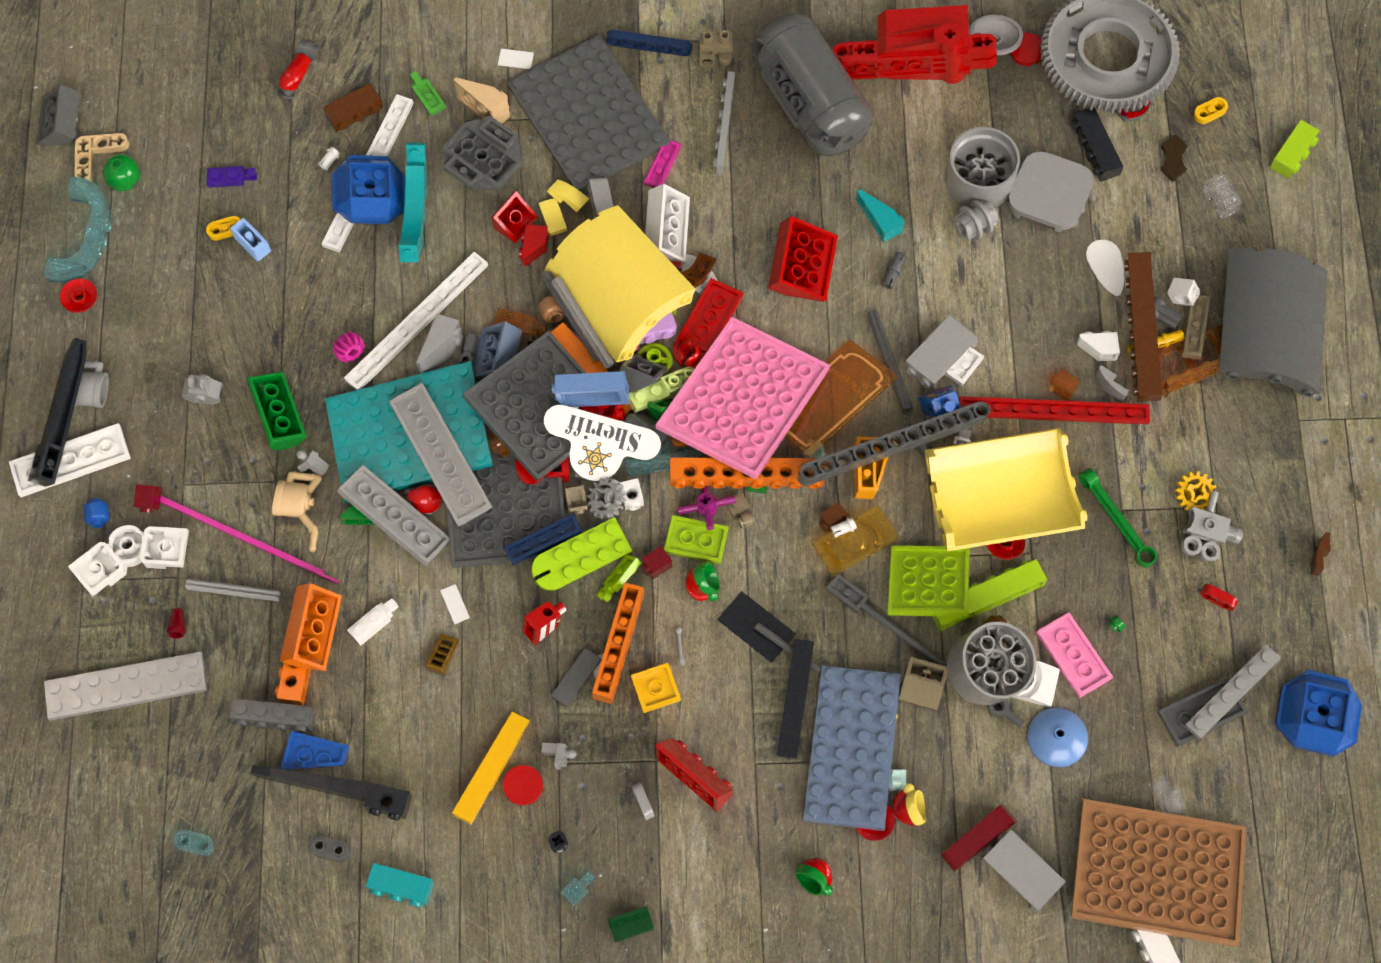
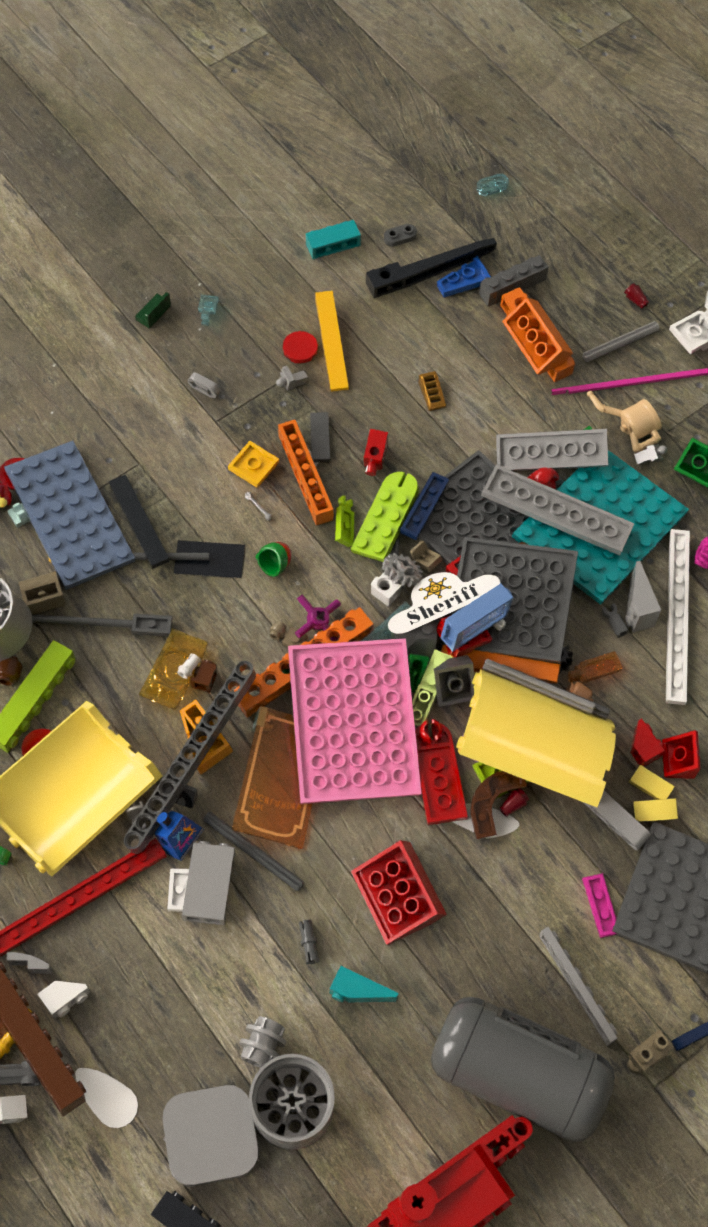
camera: 140 degrees right, 5 degrees down
(125, 686) = (630, 243): light grey plate -> none
(372, 621) = (502, 382): white hinge -> none
(455, 604) = (454, 433): white sticker -> none
(495, 347) = (590, 629): sand blue slope -> none
(554, 837) = (241, 329): black bush -> none
(652, 351) = (458, 707): lime piece -> none
(656, 562) = (323, 551): dark red brick -> none
(668, 221) = (546, 841): white slope -> none
(693, 541) = (314, 583): lime plate -> none
(693, 773) = (177, 413): red slope -> none
(815, 876) = (38, 409): green piece -> none
(928, 581) = (87, 667): lime plate -> none
(1064, 384) = (75, 932): clear orange brick -> none

